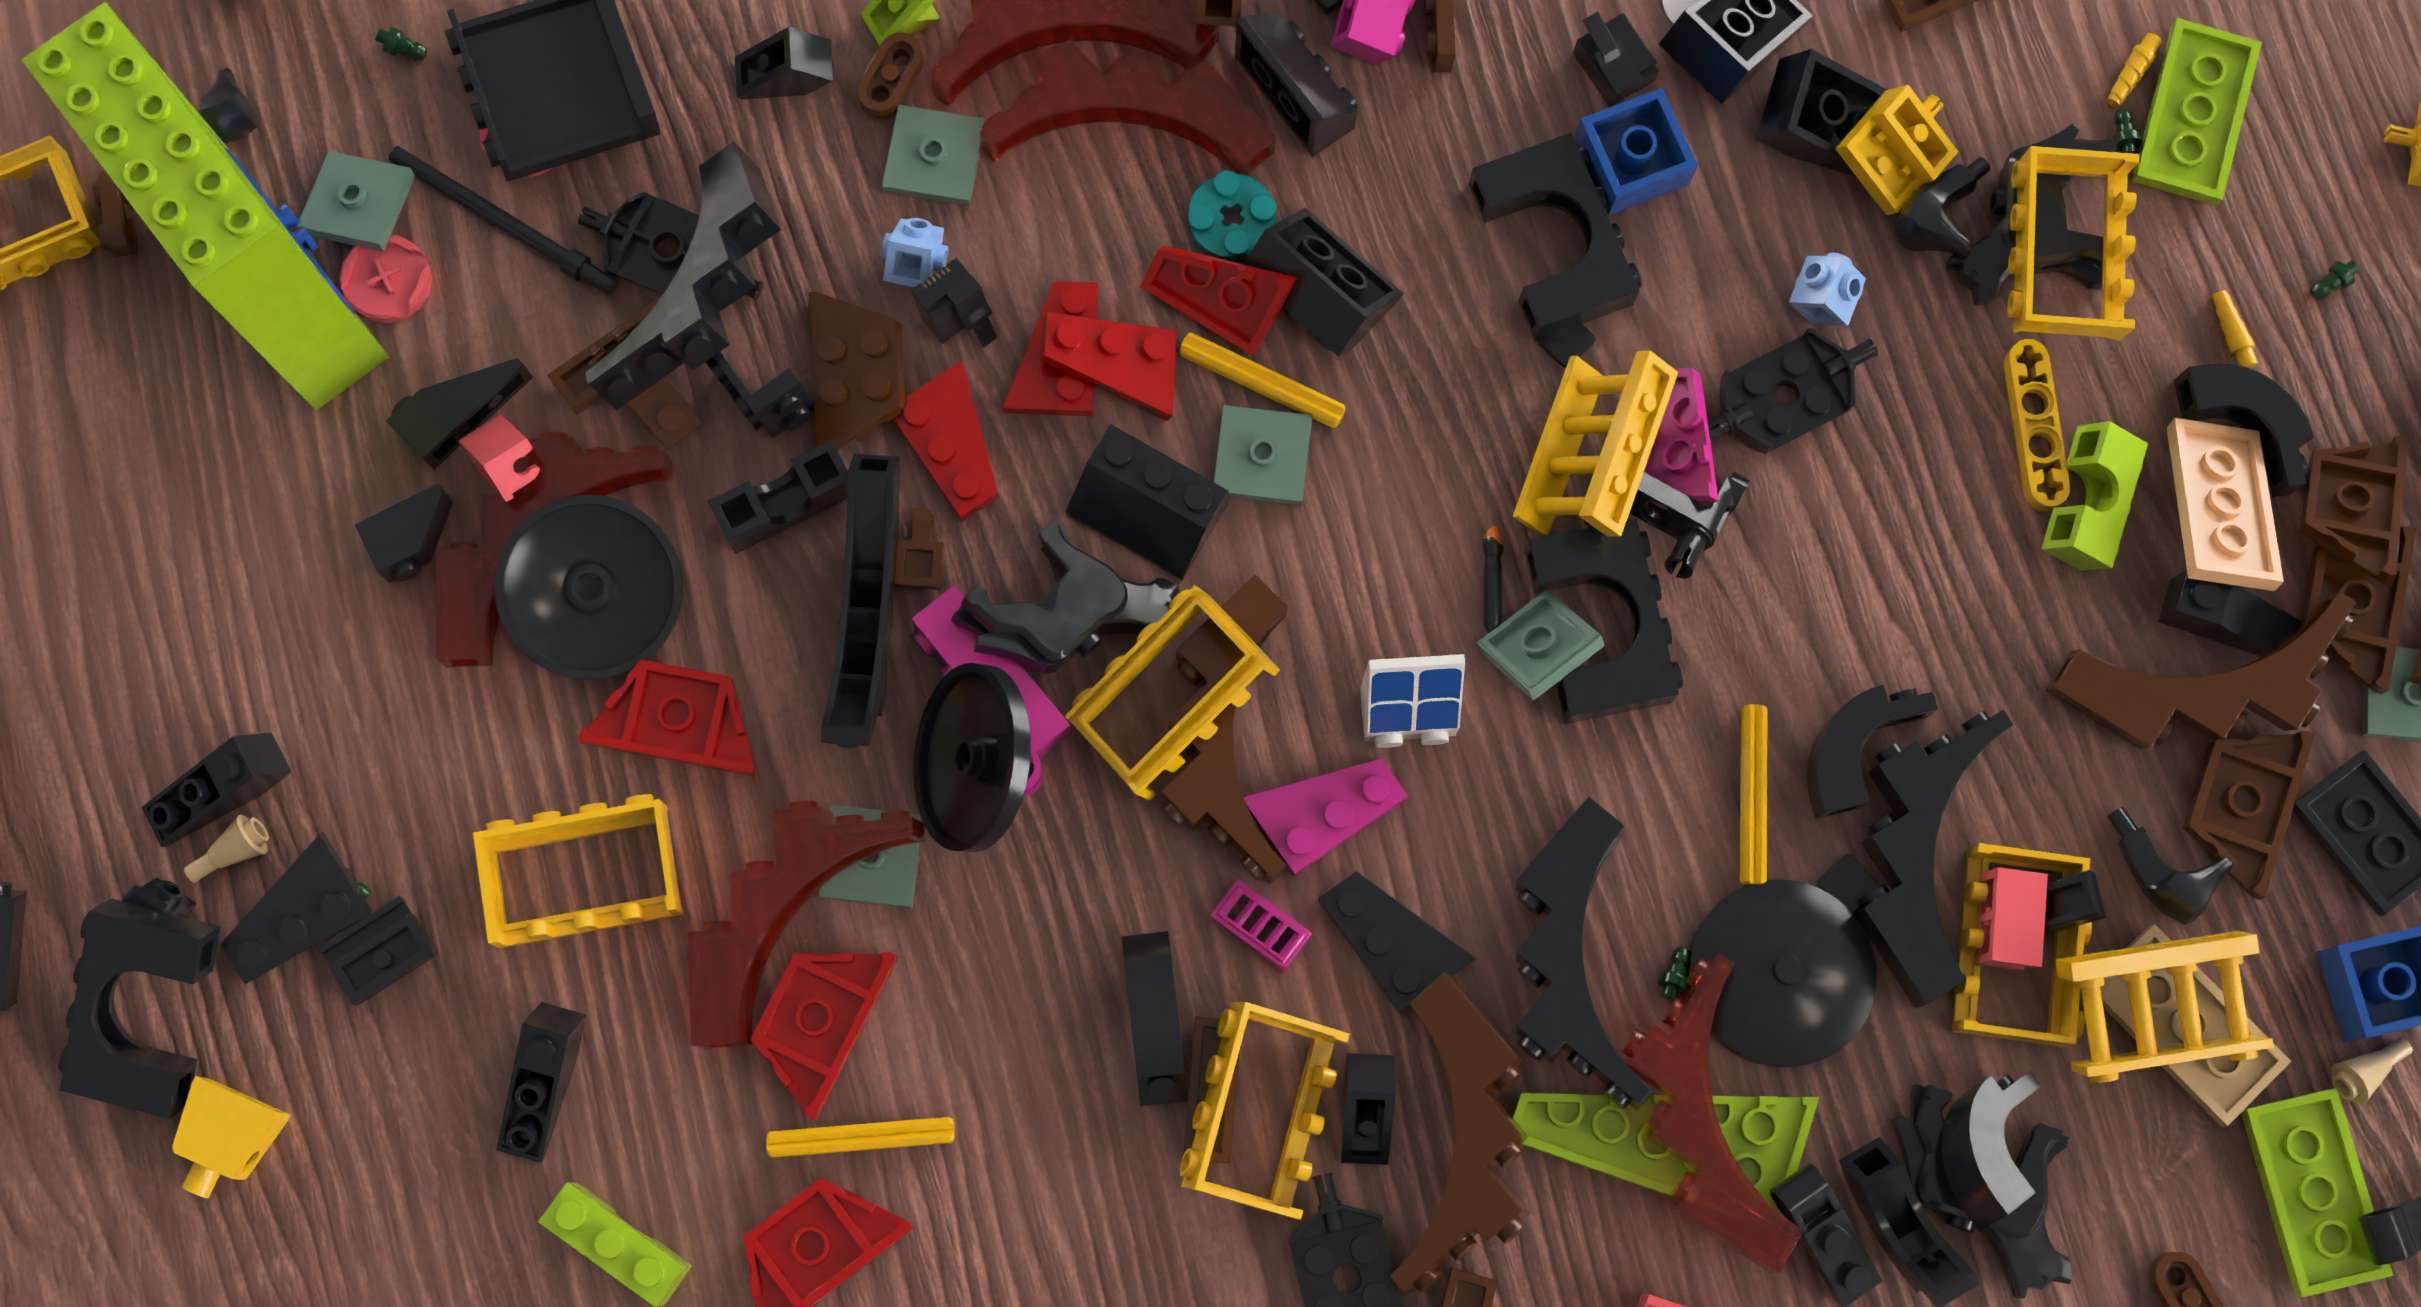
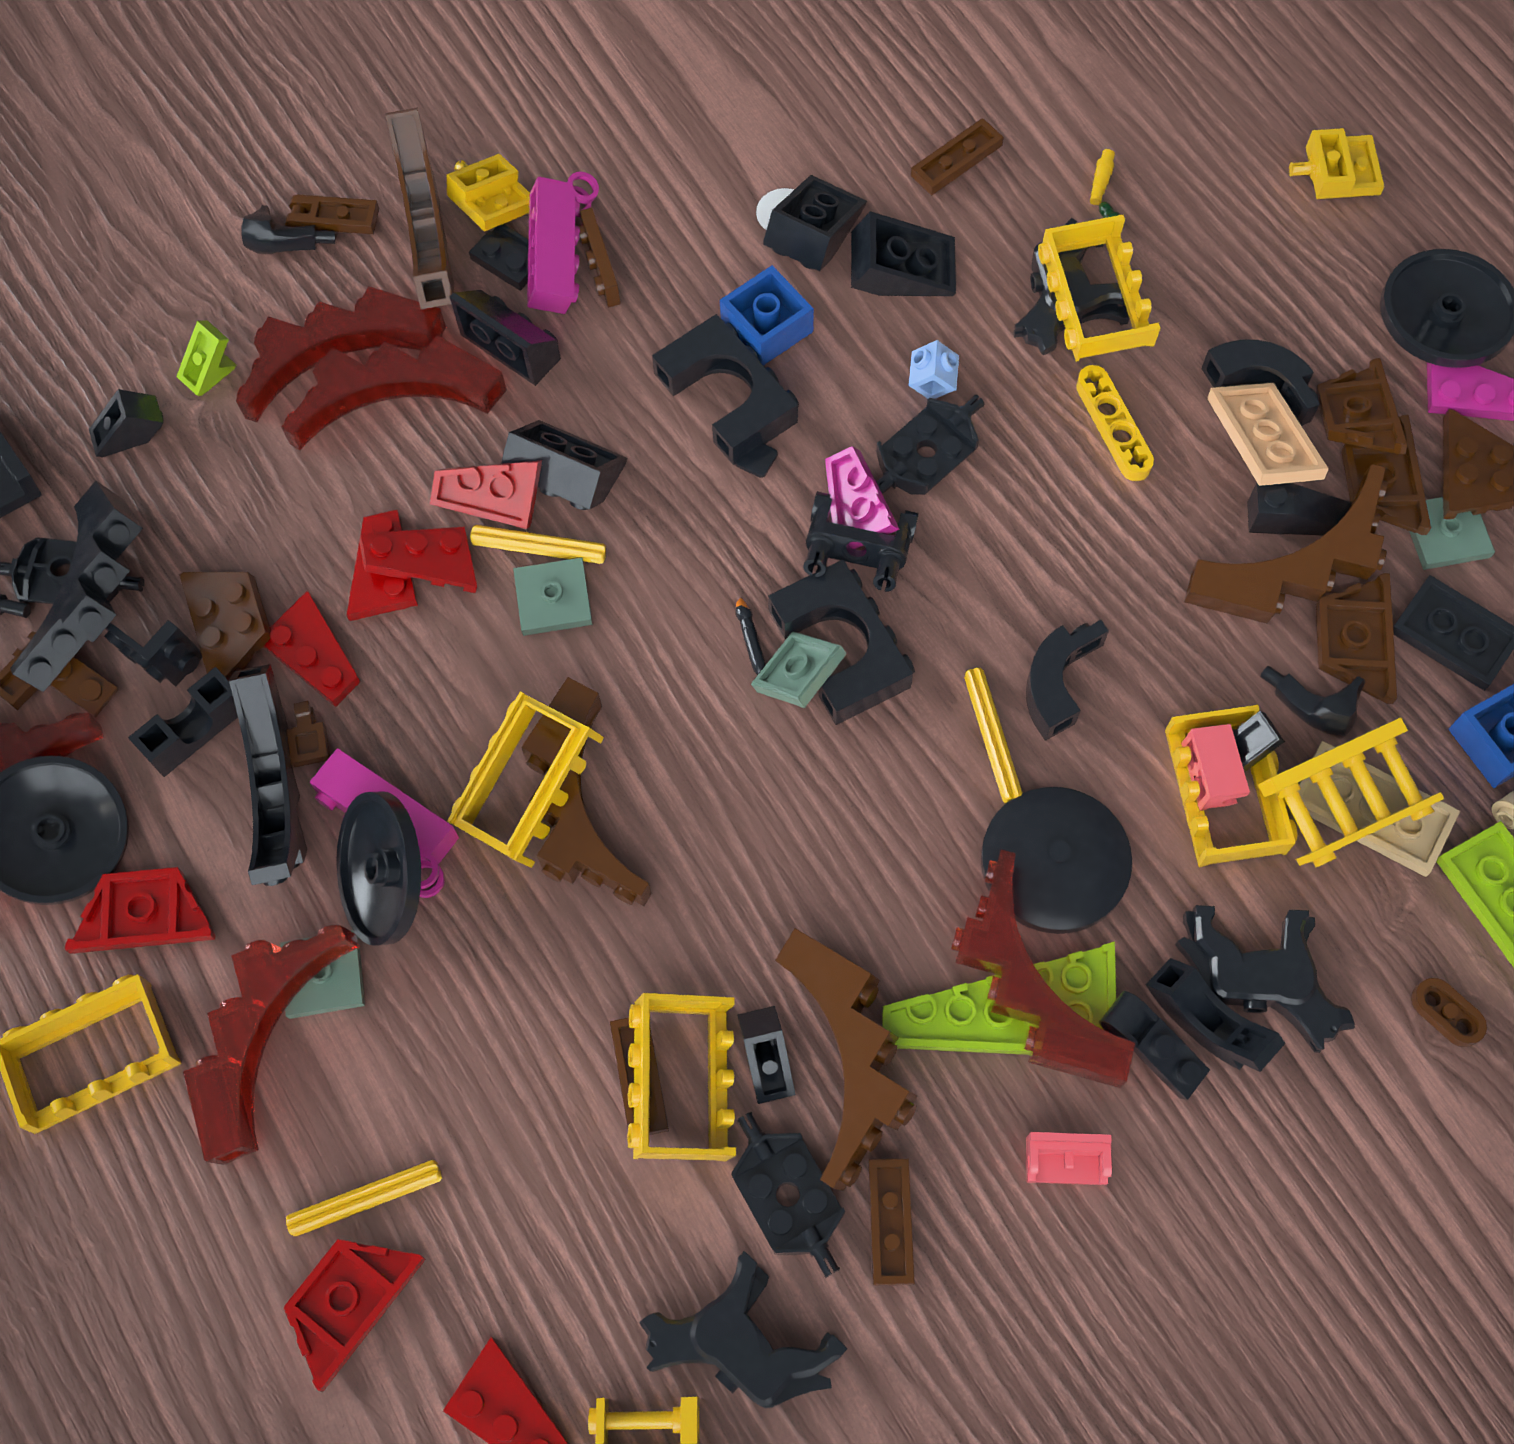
camera: 10 degrees left, 10 degrees down
(540, 1080) = (87, 1228): black slope -> none
(614, 1244) = (177, 1345): lime arch -> none
(818, 1019) = (307, 1113): red wing -> none
(888, 77) = (206, 413): reddish brown plate -> none
(913, 252) = (244, 530): light blue brick -> none
(933, 155) = (252, 457): sand green plate -> none
(954, 302) = (289, 550): black piece -> none
(1079, 608) = (433, 747): black animal -> none
(1147, 502) = (473, 650): black slope -> none
(1154, 1018) = (577, 1034): black arch -> none
(1224, 193) = (475, 425): teal plate -> none
(1285, 922) = (666, 960): dark pink slope -> none
(1324, 811) = (670, 839): dark pink wing -> none
(1391, 940) = (748, 920): black wing -> none
(1412, 699) = (711, 729): slope -> none
(1564, 1016) = (898, 935): black arch -> none
(1615, 58) = (732, 259): black piece -> none
(1623, 455) = (817, 514): yellow fence -> none
(1674, 978) = (975, 886): dark green piece -> none
(1848, 881) = (1085, 777): black piece -> none
(1897, 147) = (953, 263): yellow plate -> none
(1906, 918) = (1115, 738): black arch -> none
(1922, 218) = (988, 306): black animal -> none
(1977, 1153) = (1250, 945): arch -> none
(2110, 467) = (1177, 479): lime arch -> none
(2197, 111) = (1155, 190): lime plate -> none
(2236, 335) = (1235, 327): yellow animal -> none
(2339, 276) = (1292, 269): dark green piece -> none

